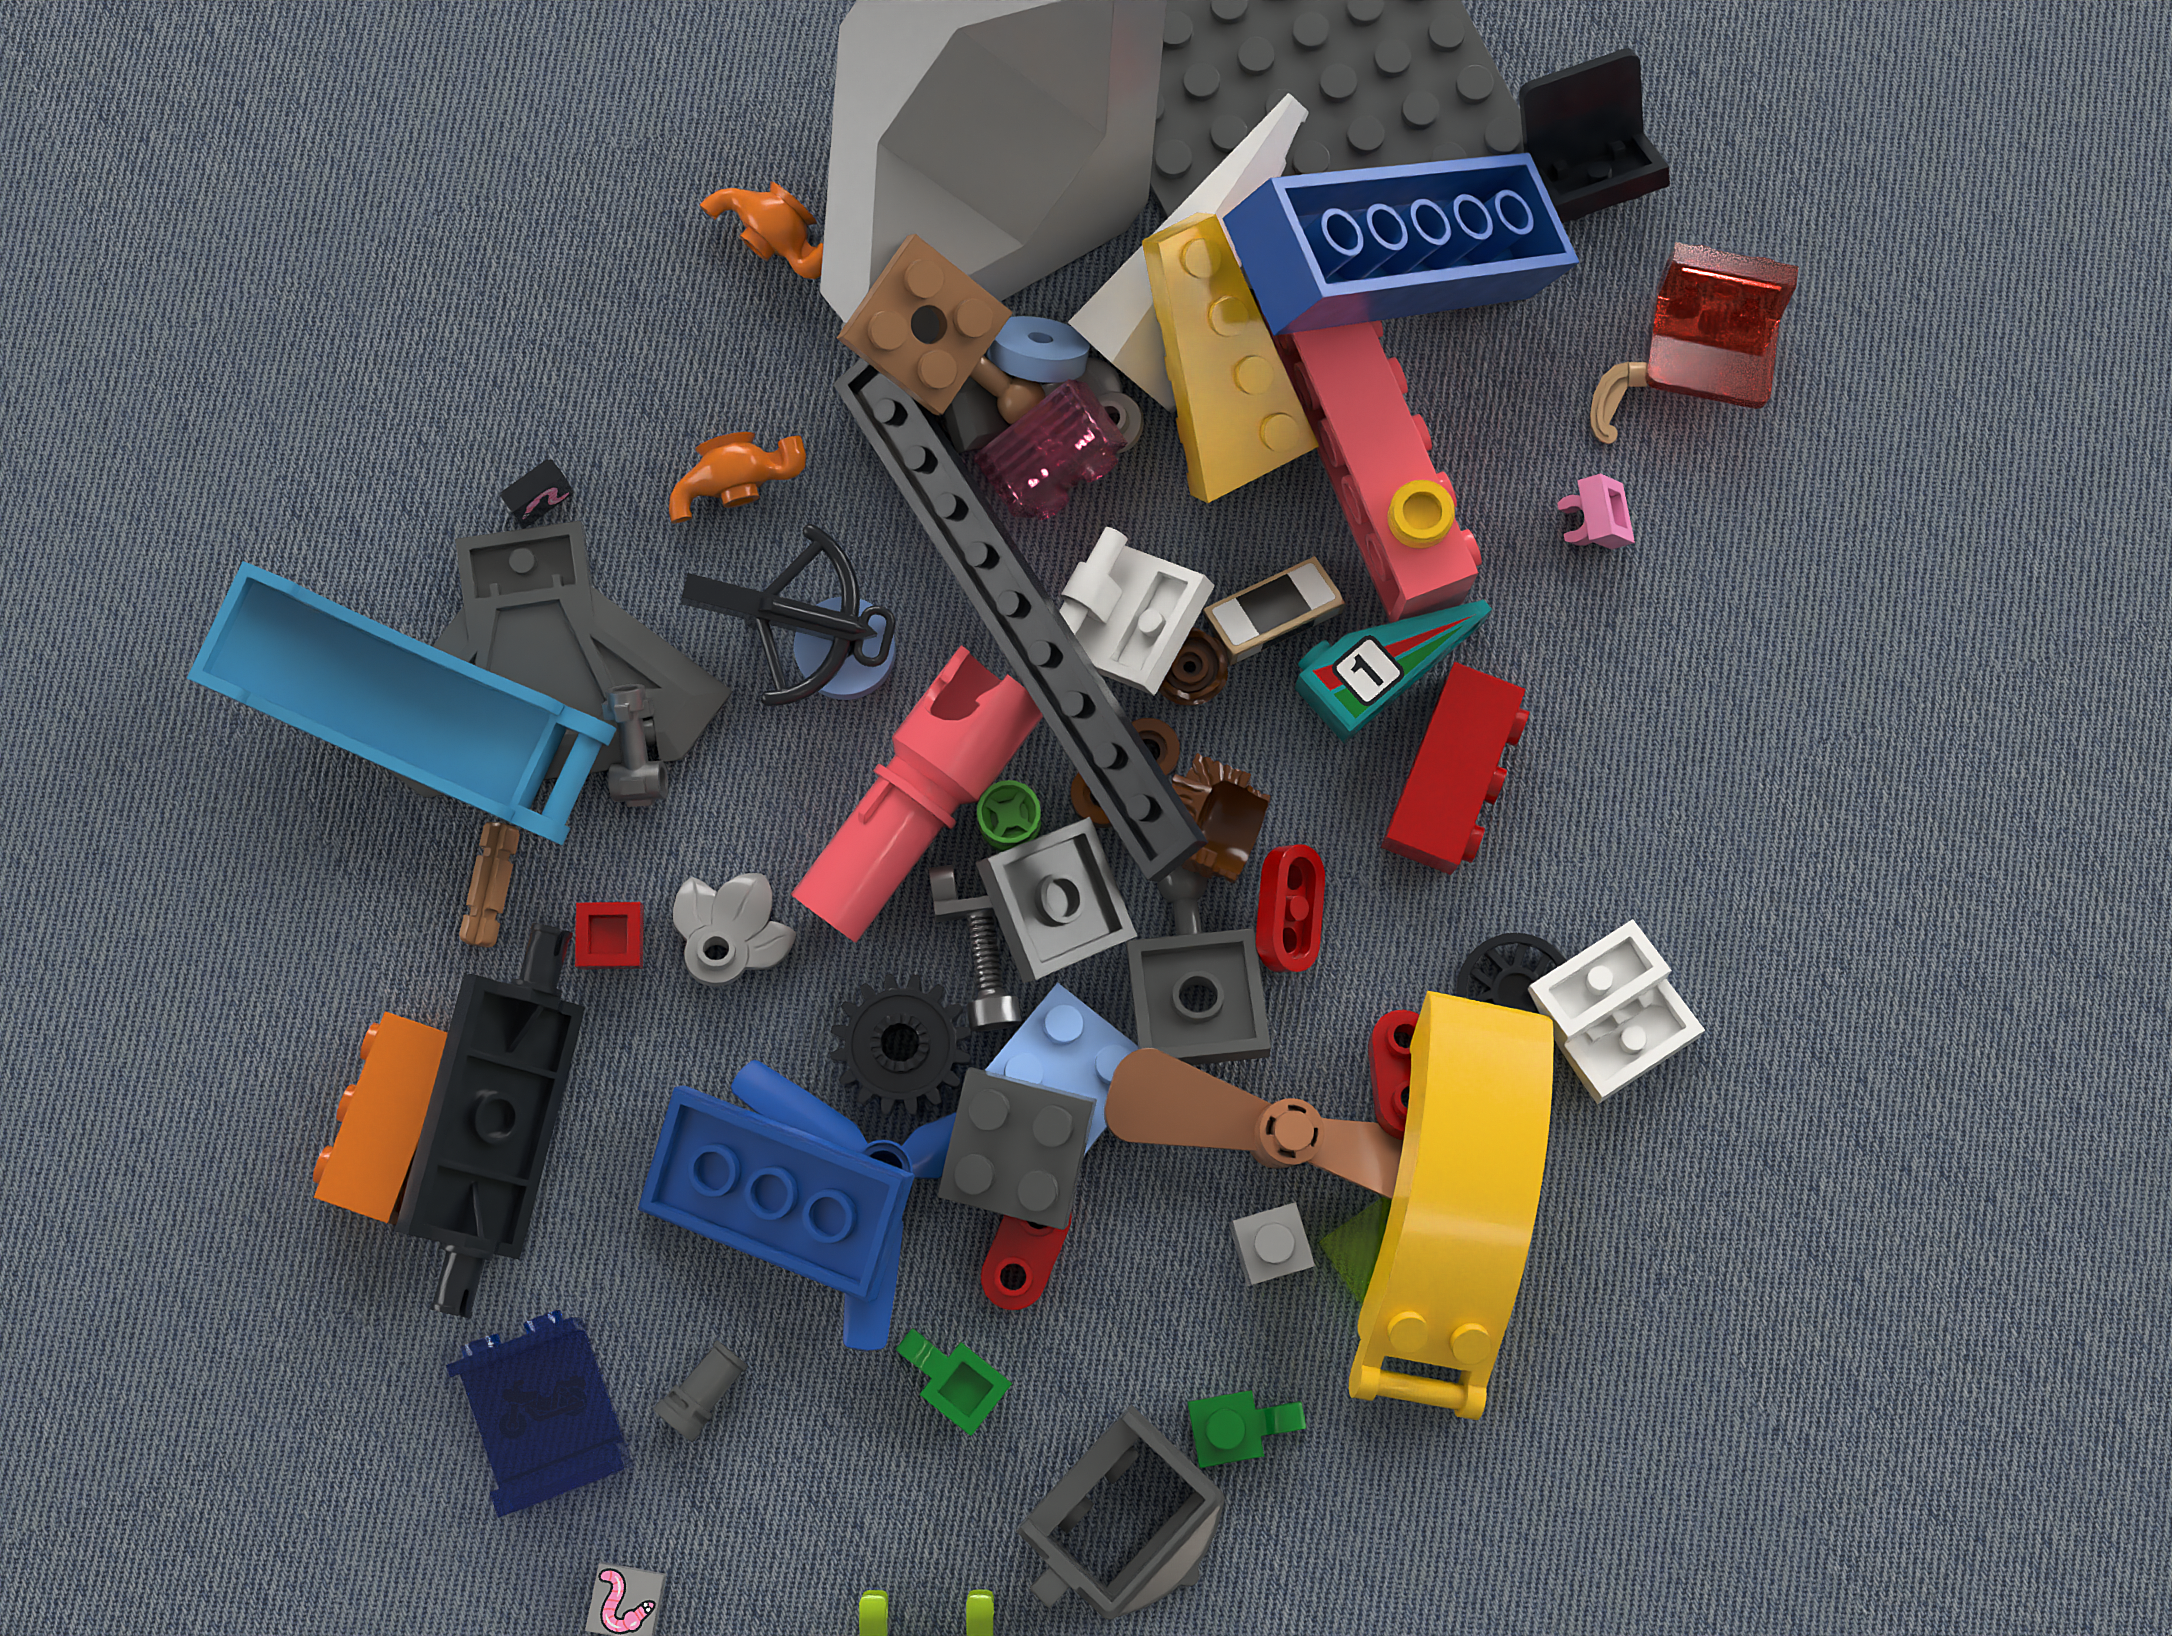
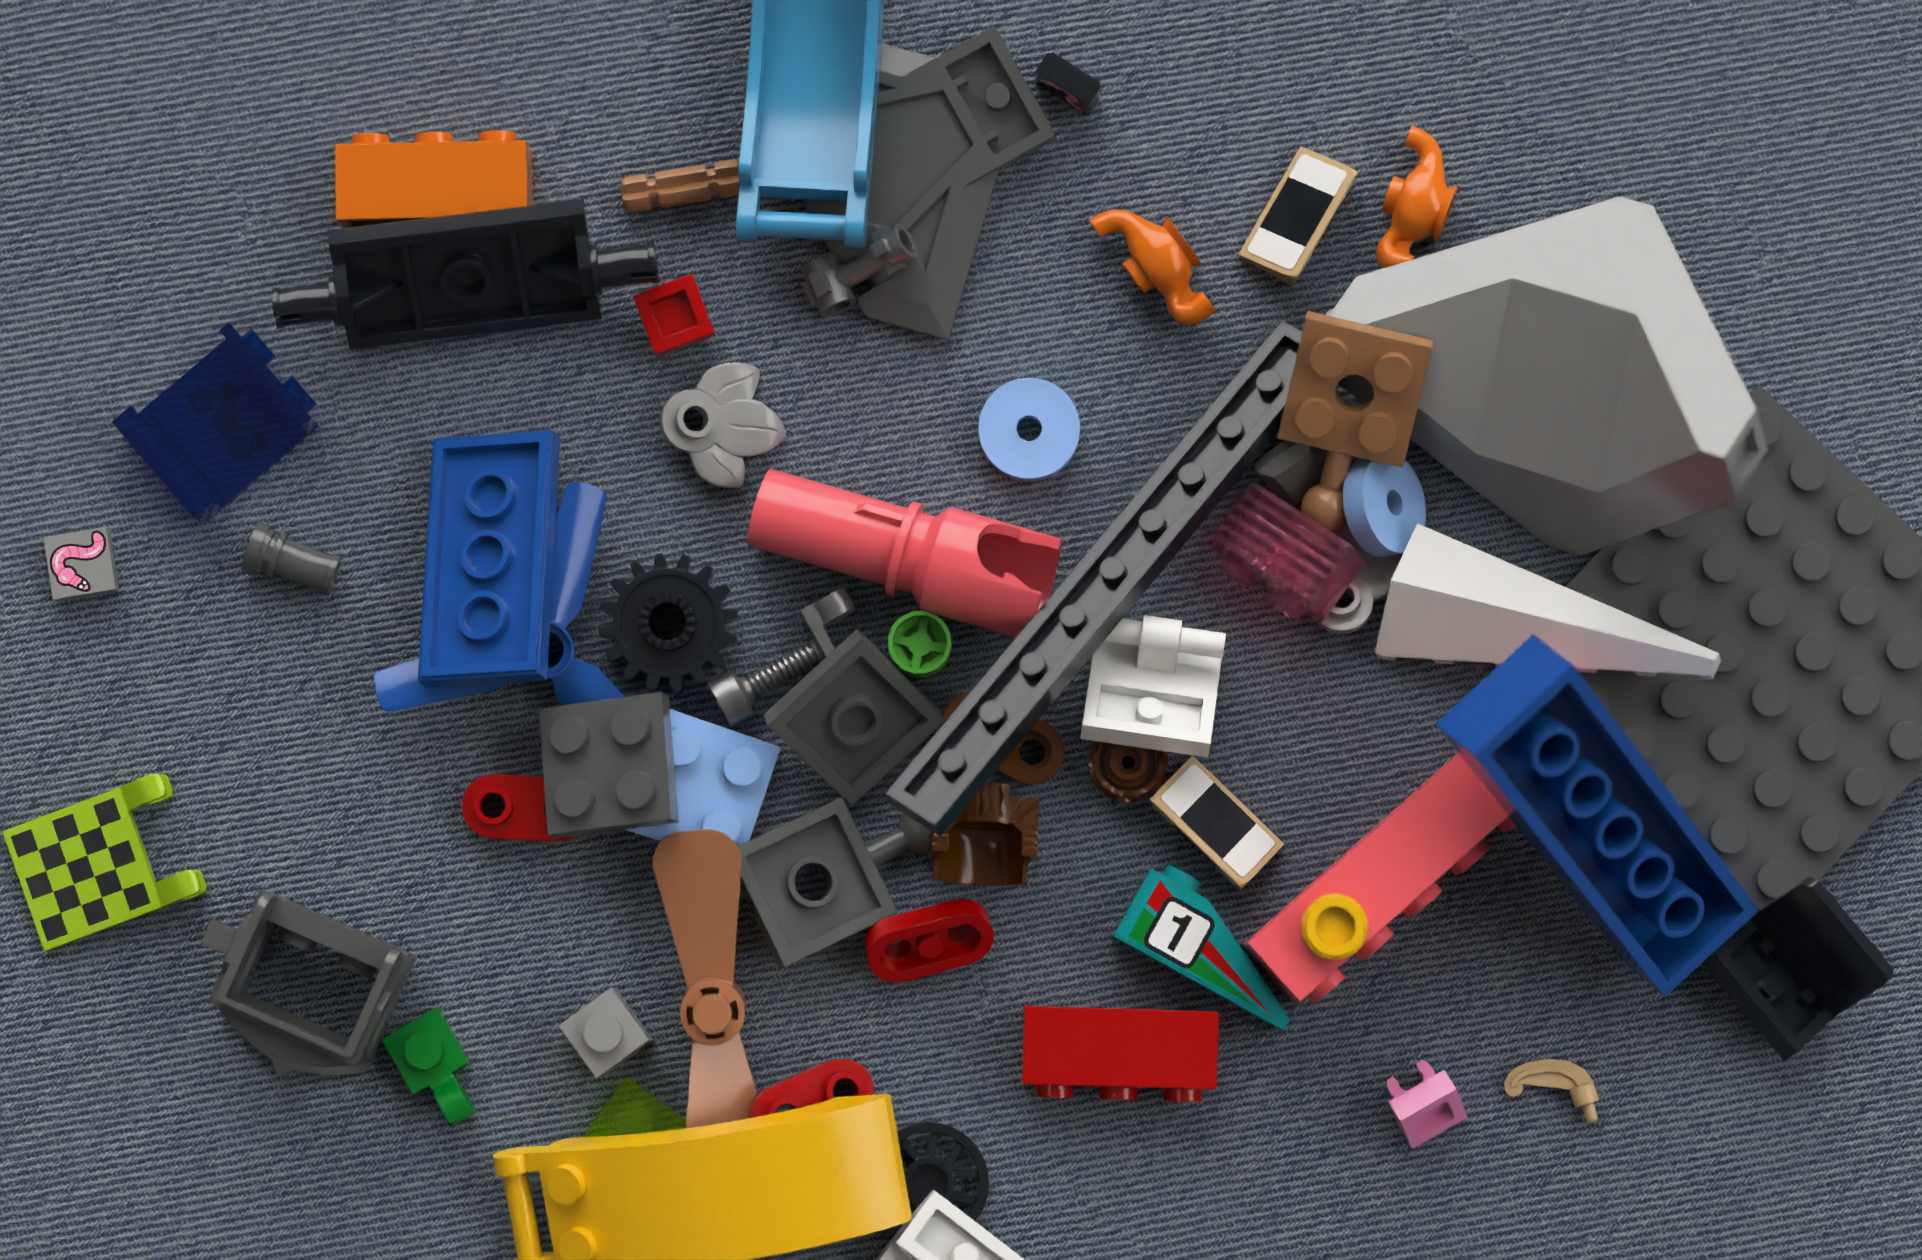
camera: 75 degrees right, 5 degrees up
(741, 335) = (1298, 215): none -> slope
(767, 609) = (1032, 343): black piece -> none
(960, 1384) = (379, 793): green plate -> none
(1224, 371) = (1385, 713): yellow wedge -> none
(1718, 324) = (1653, 1156): clear red bracket -> none

